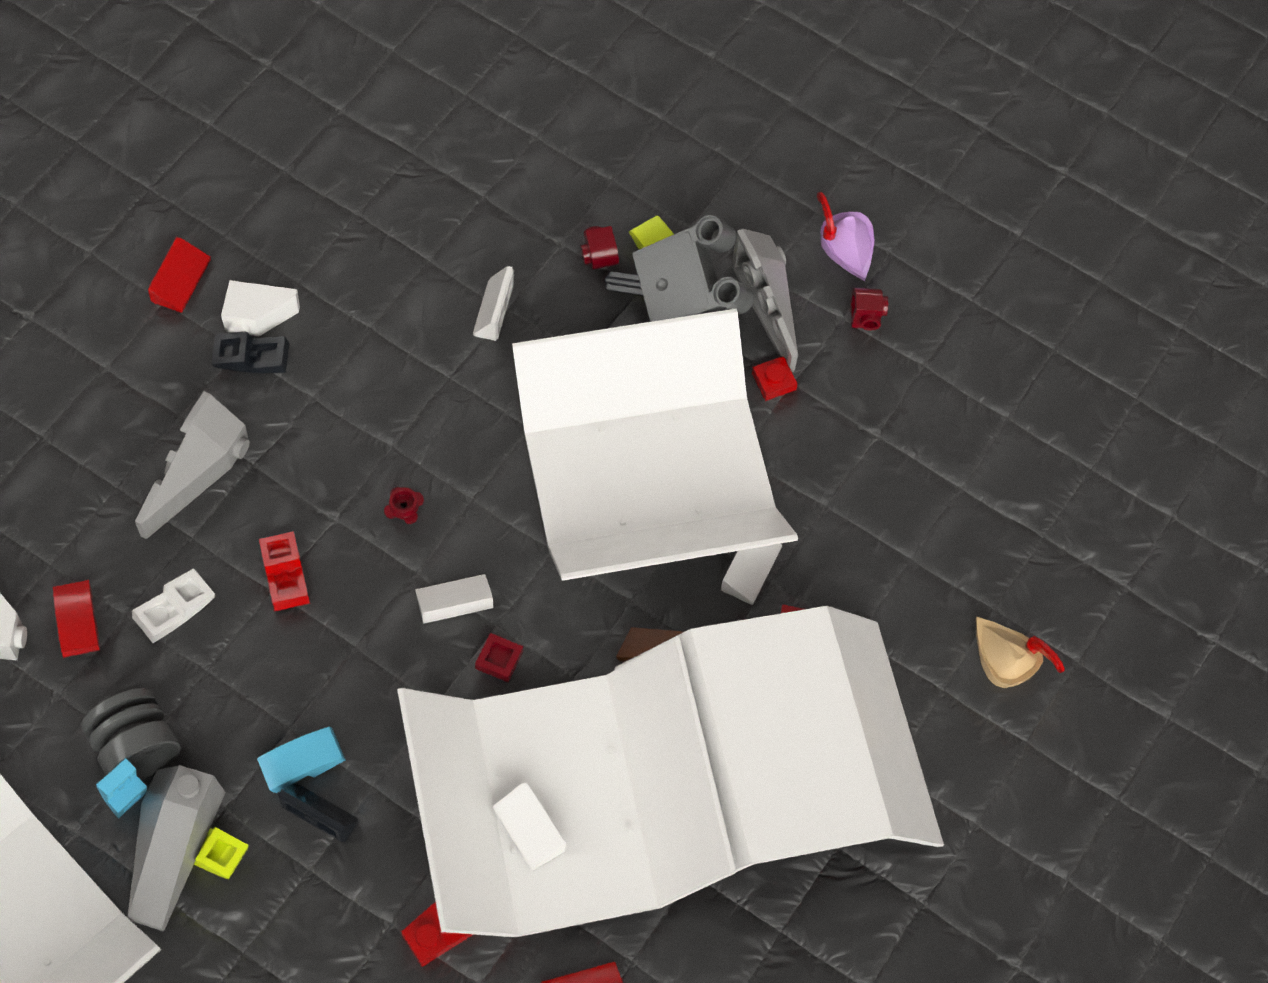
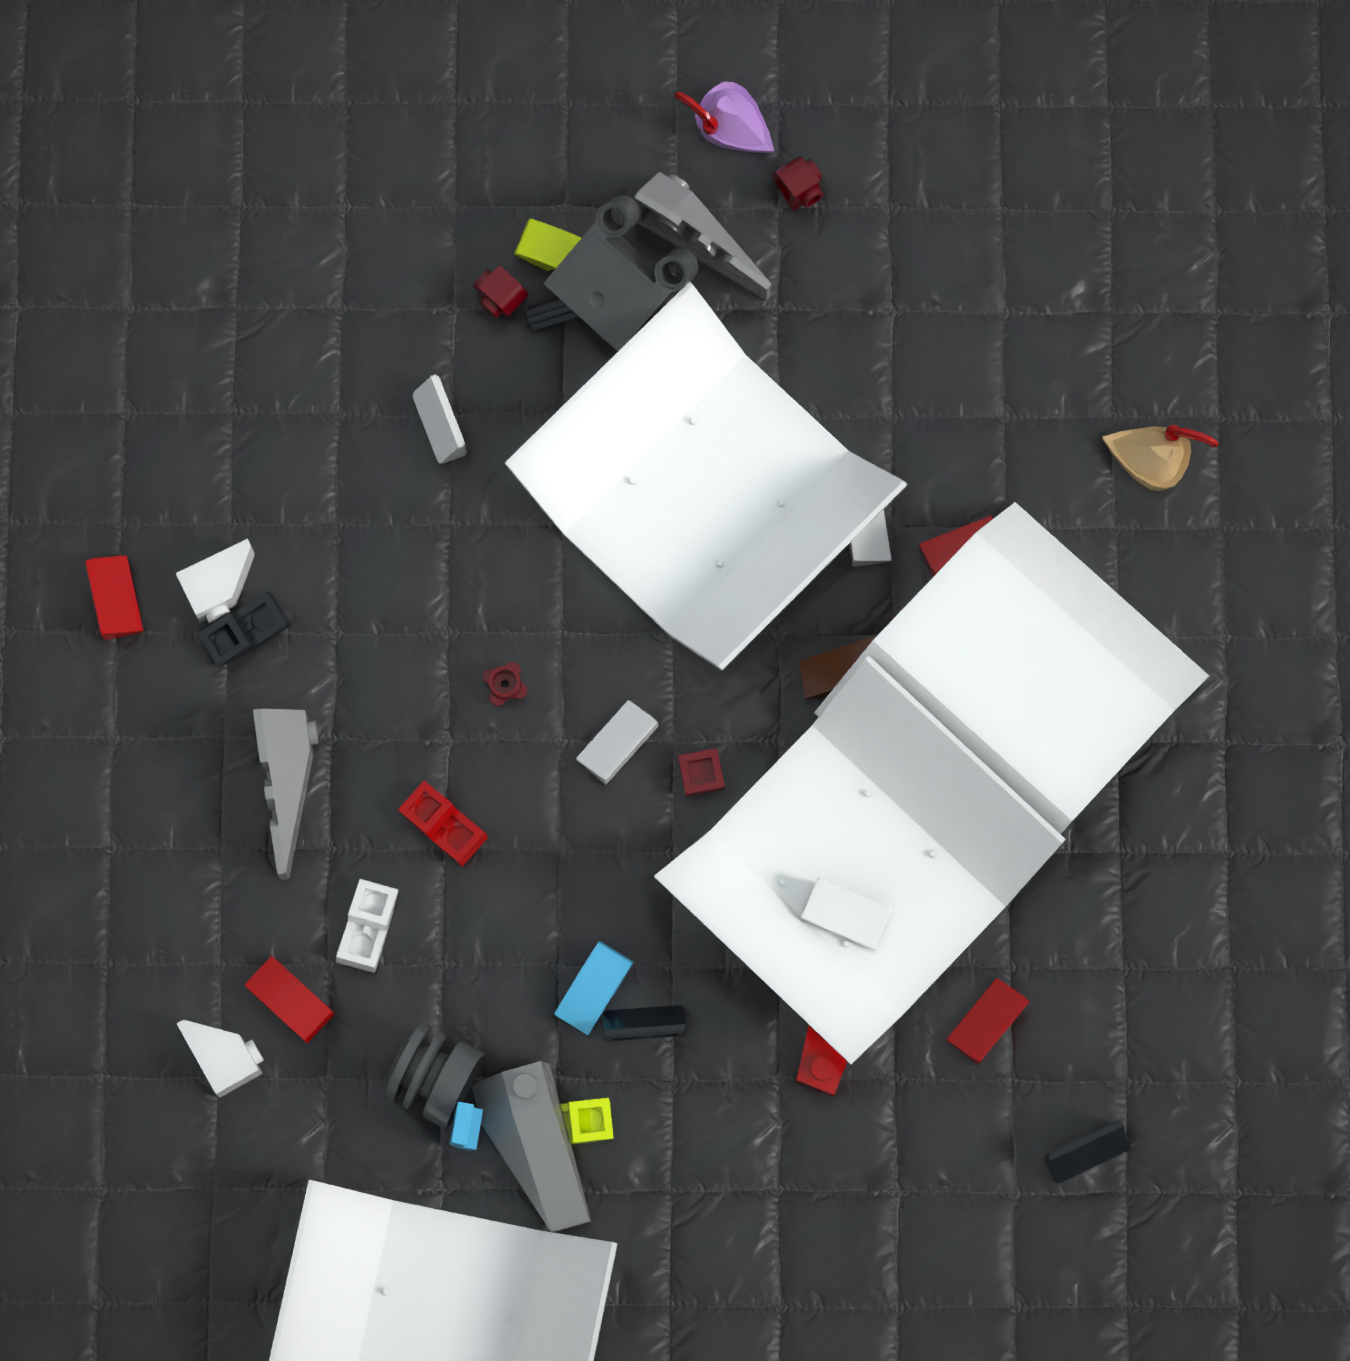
camera: 30 degrees left, 15 degrees up
(774, 378) = (758, 316): red plate -> none

